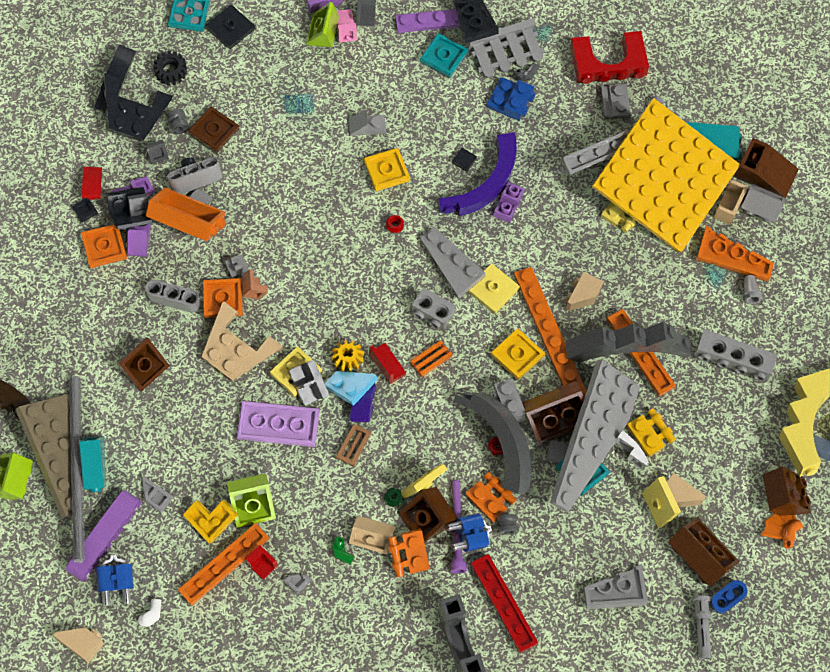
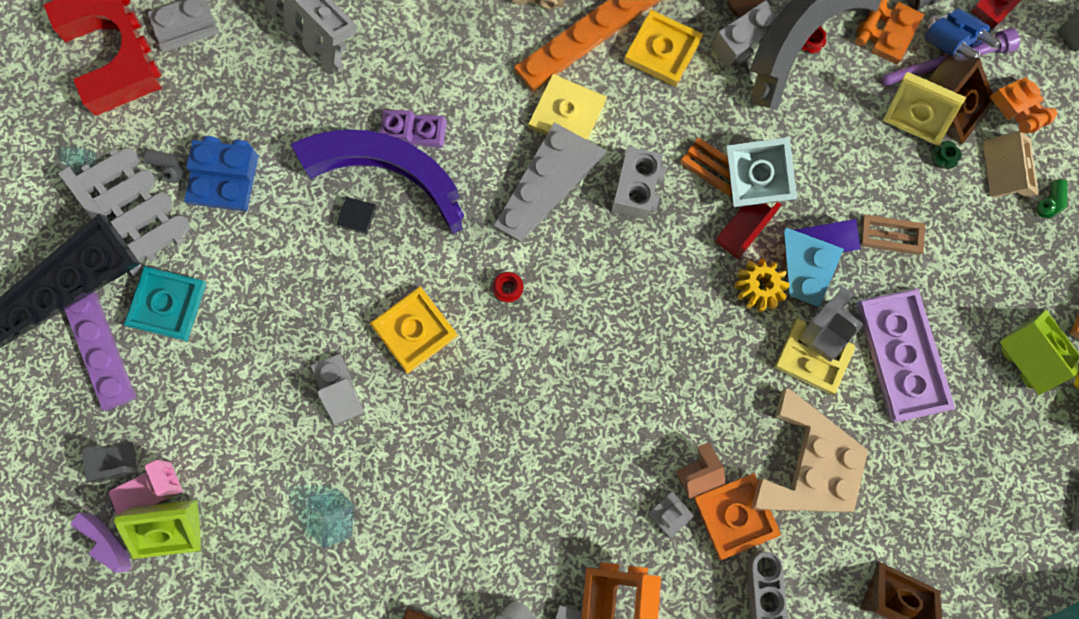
camera: 105 degrees left, 10 degrees up
(415, 376) = (761, 172): none -> light aqua slope

